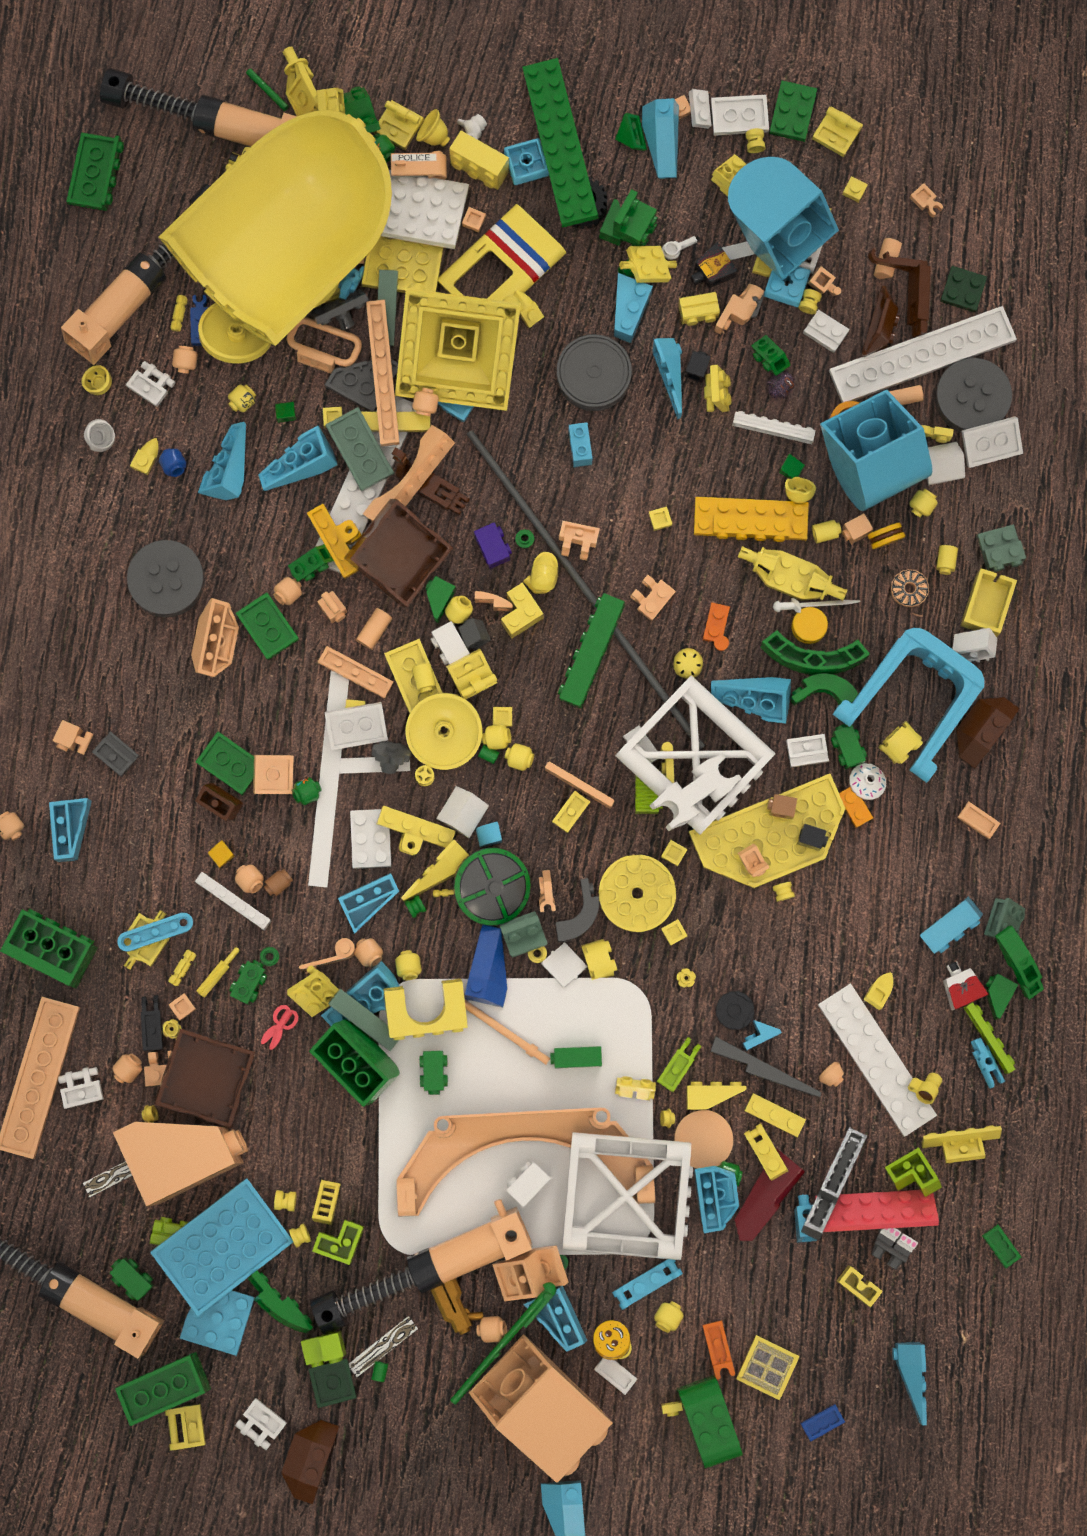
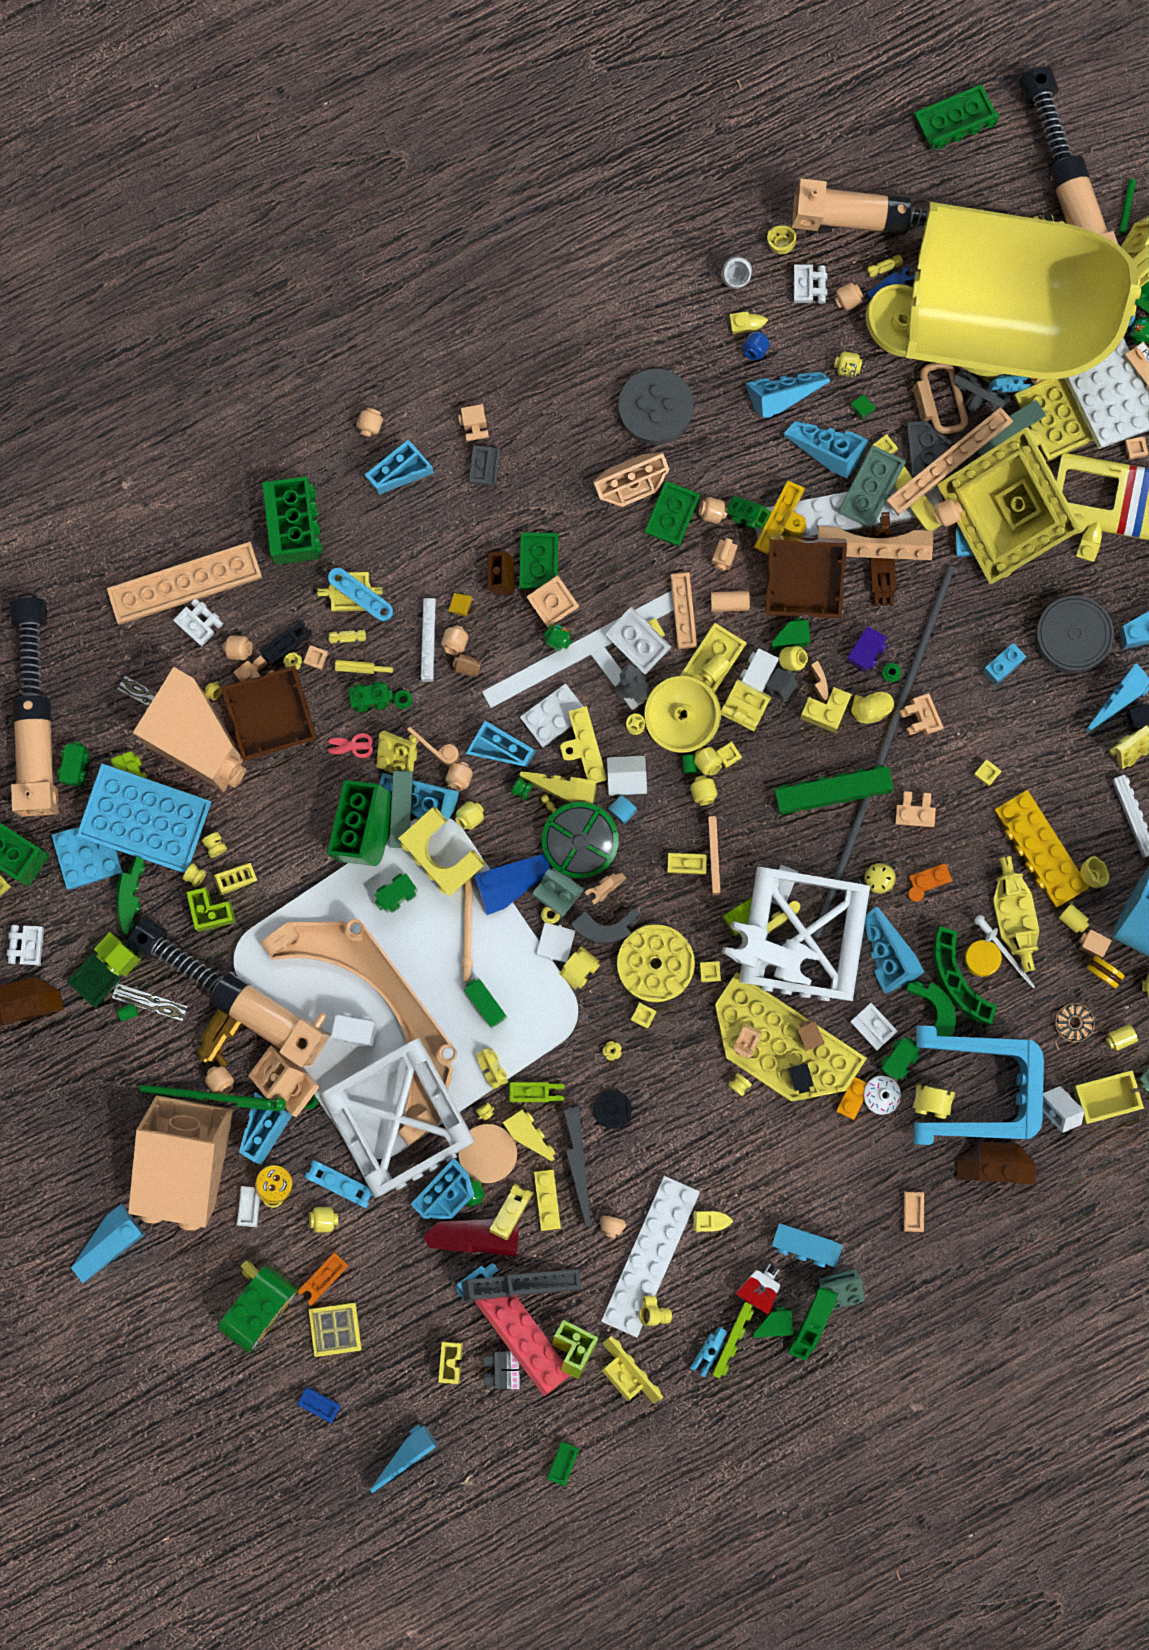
camera: 65 degrees right, 0 degrees up
(765, 1033) = (609, 1147): medium azure slope -> none
(792, 467) = (1110, 853): green slope -> none

